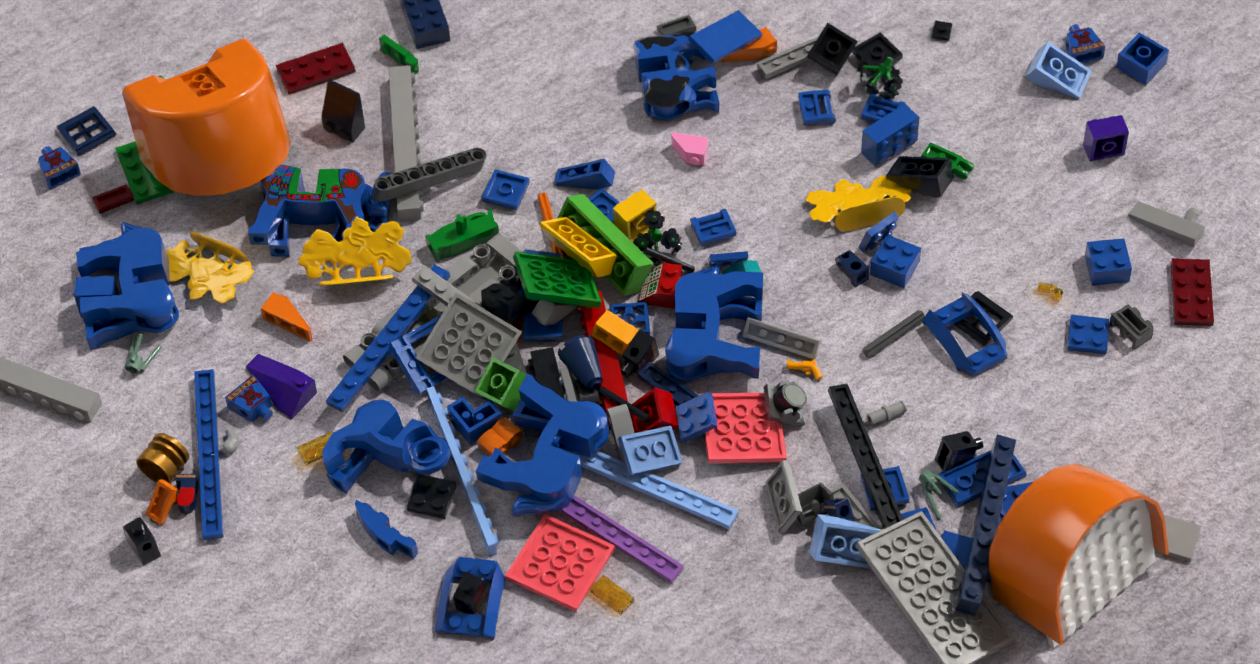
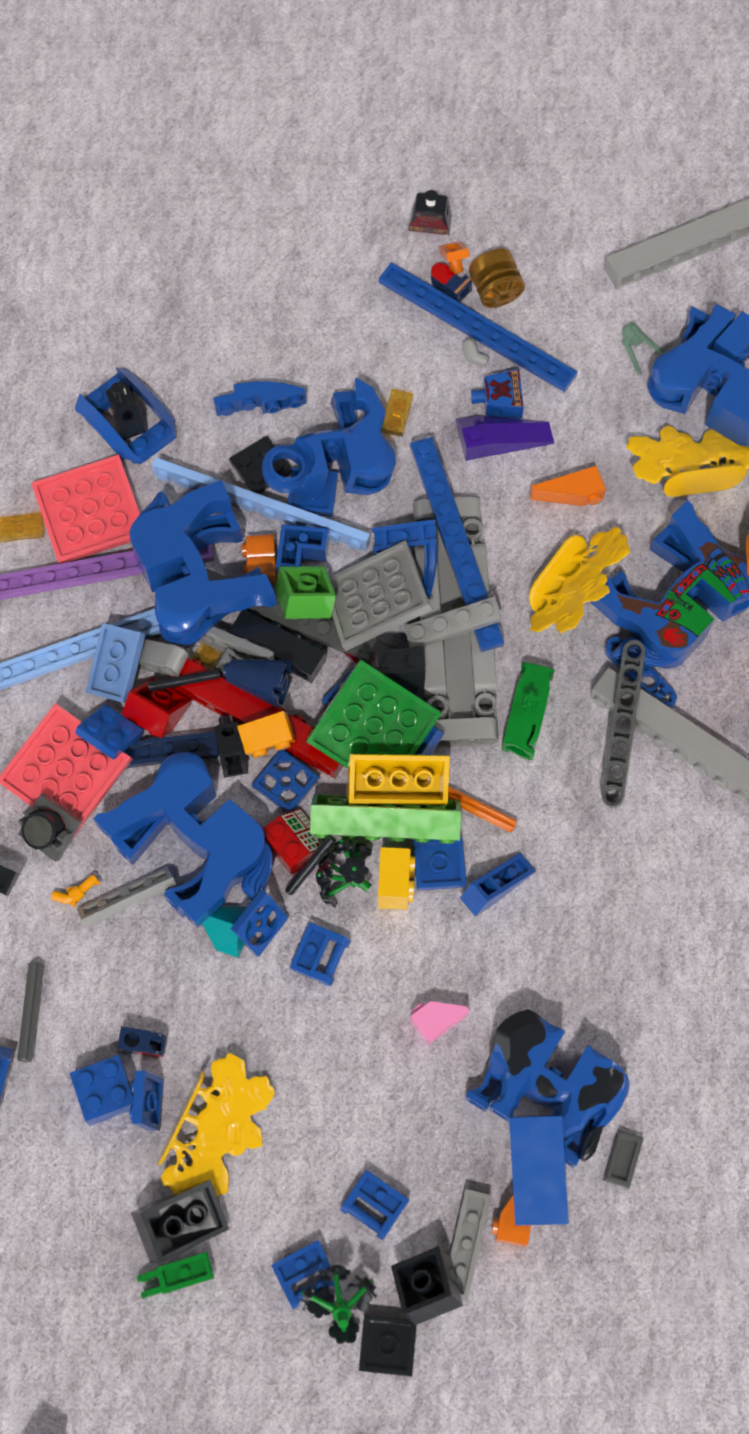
camera: 130 degrees right, 15 degrees up
(506, 189) = (550, 796): blue plate -> none
(890, 135) = (254, 1236): blue brick -> none

